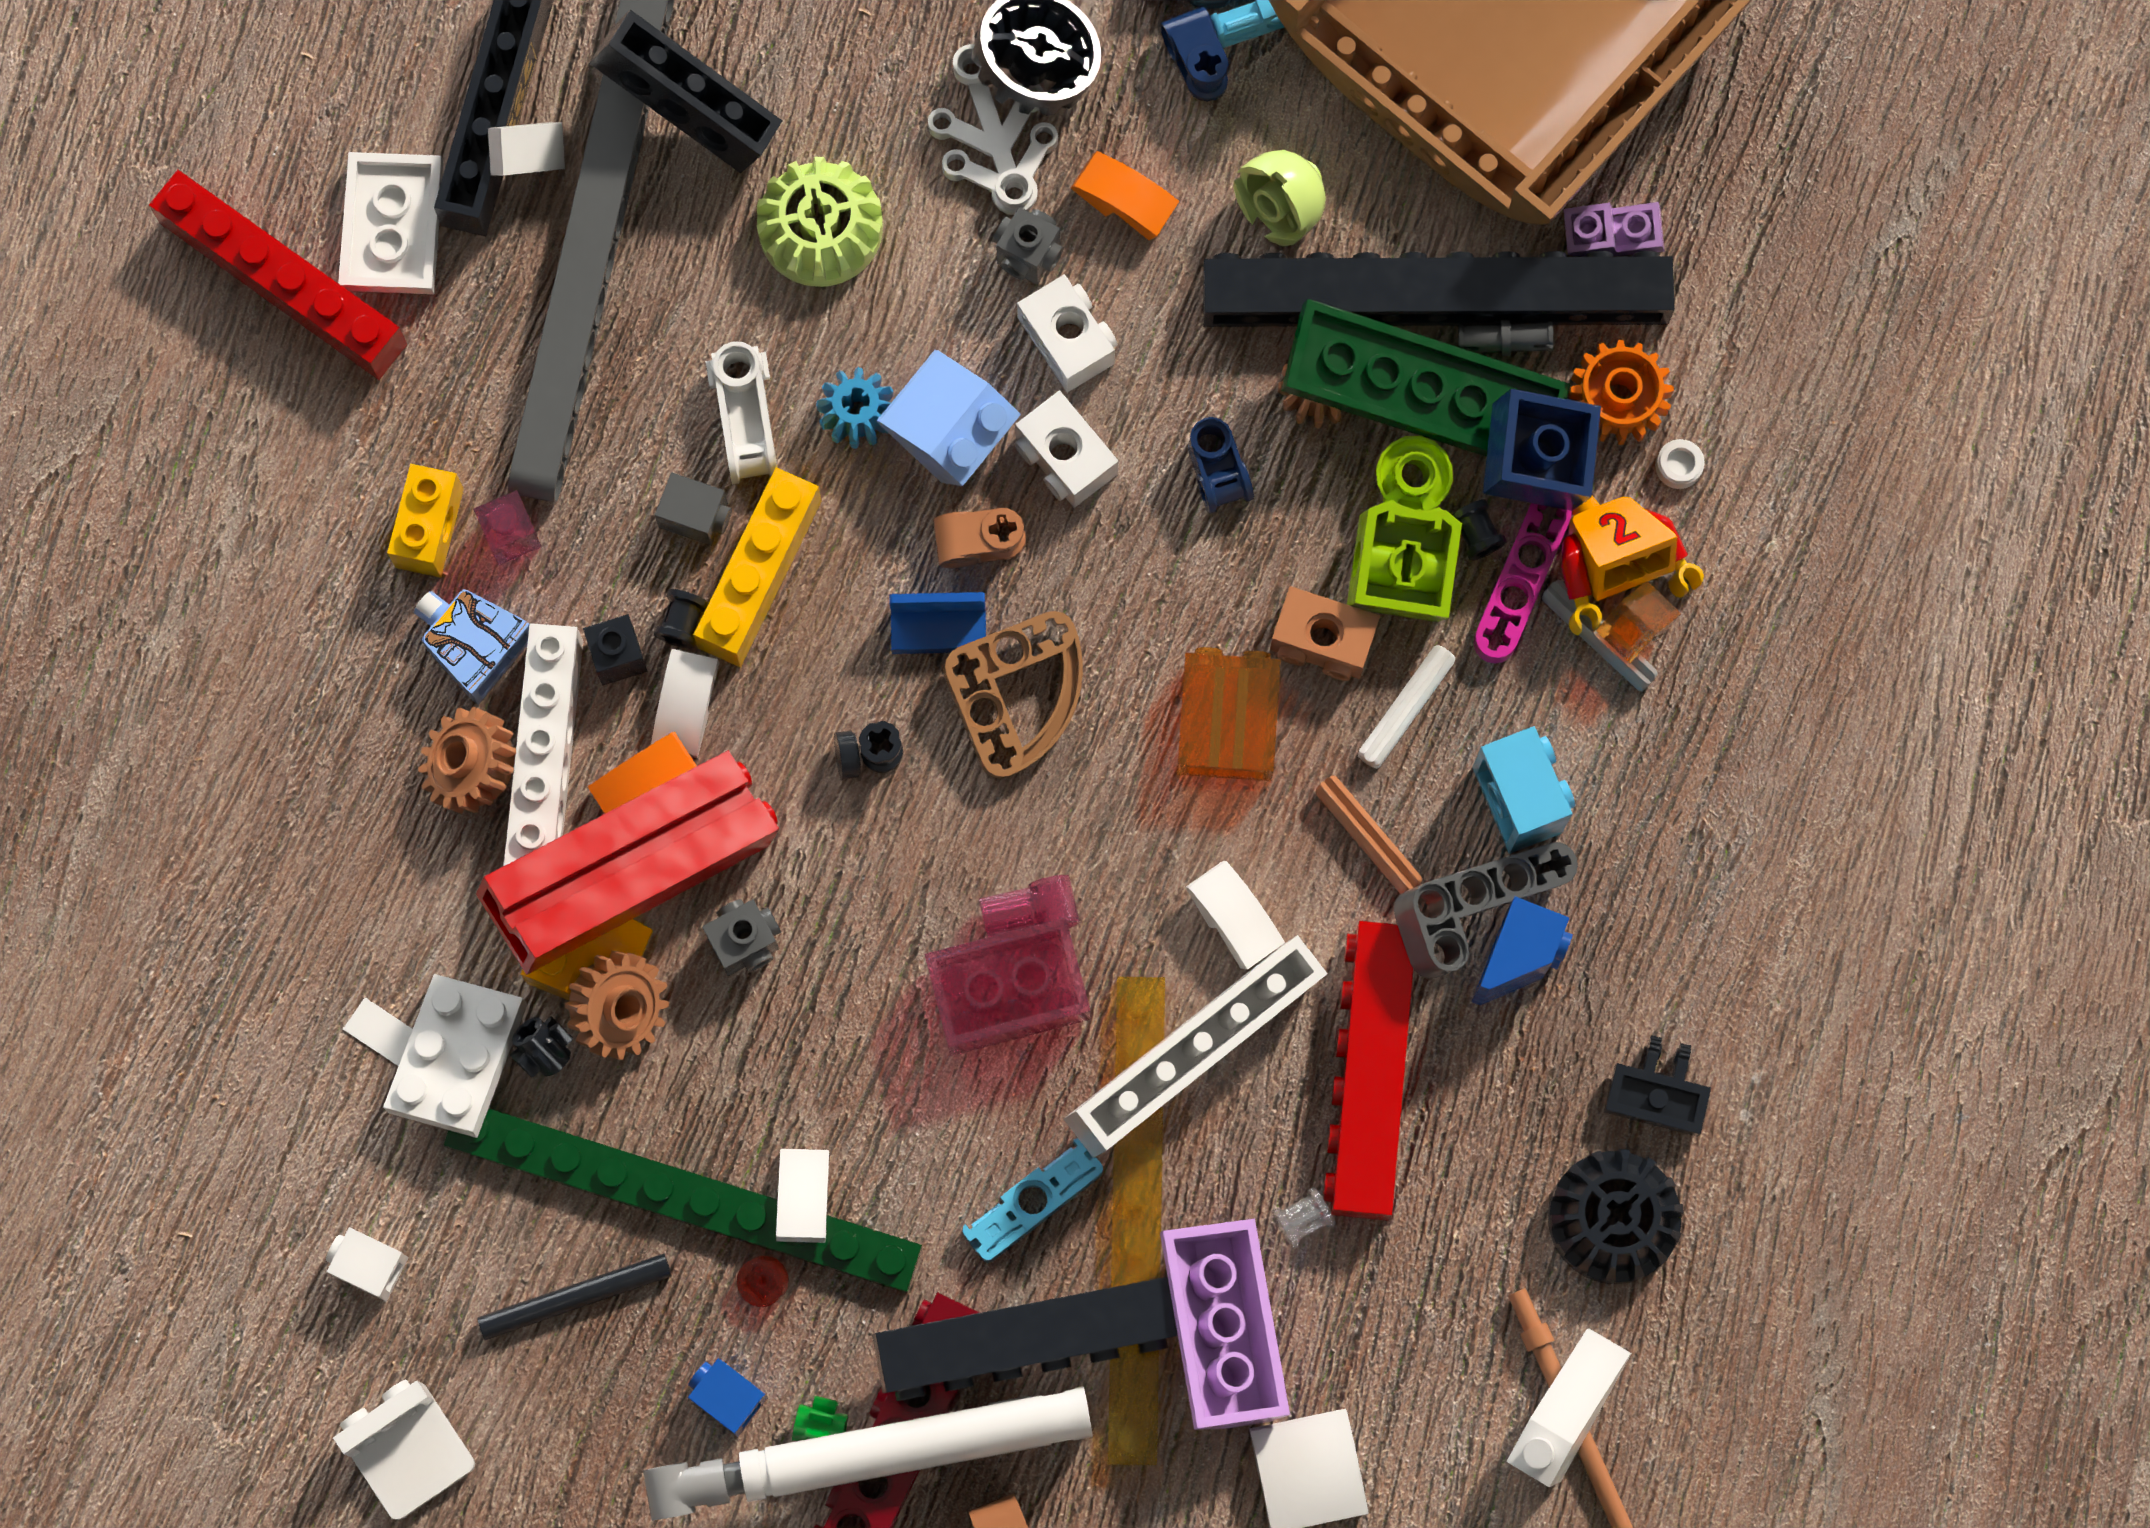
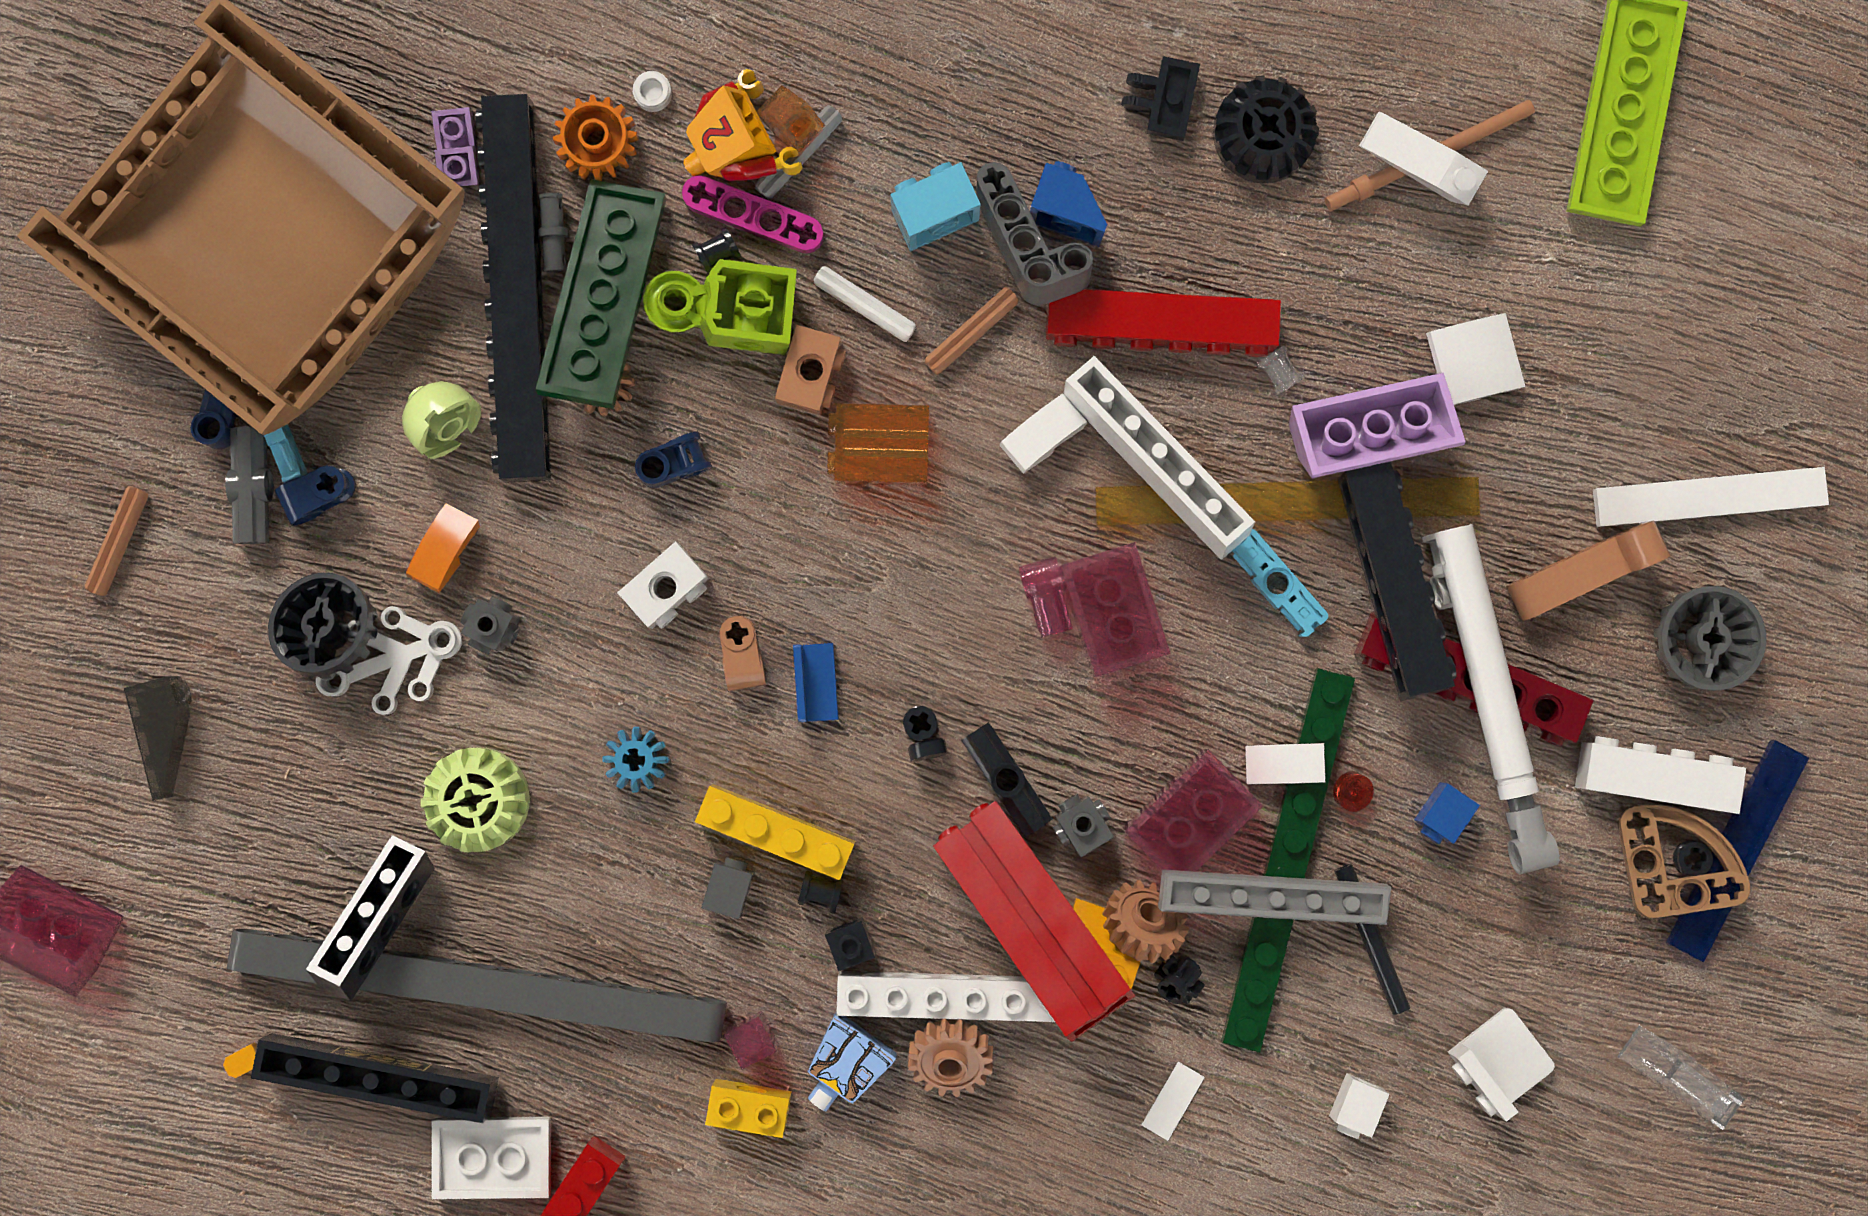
camera: 95 degrees left, 10 degrees up
(455, 1055) = (1189, 1048): white plate -> none
(526, 148) = (425, 1049): white tile -> none
(635, 1165) = (1274, 897): none -> light grey tile
(642, 772) = (955, 913): orange slope -> none
(685, 699) = (890, 884): white slope -> none
(742, 1069) = (1192, 815): none -> clear pink brick
(744, 410) = (644, 851): white piece -> none
(819, 1420) = (1465, 739): green gear -> none
(832, 831) = (1020, 801): none -> black piece
(948, 418) = (645, 682): light blue slope -> none
(992, 668) = (852, 636): medium nougat beam -> none
(1070, 359) = (586, 582): white brick -> none
(1542, 449) = (654, 196): dark blue brick -> none

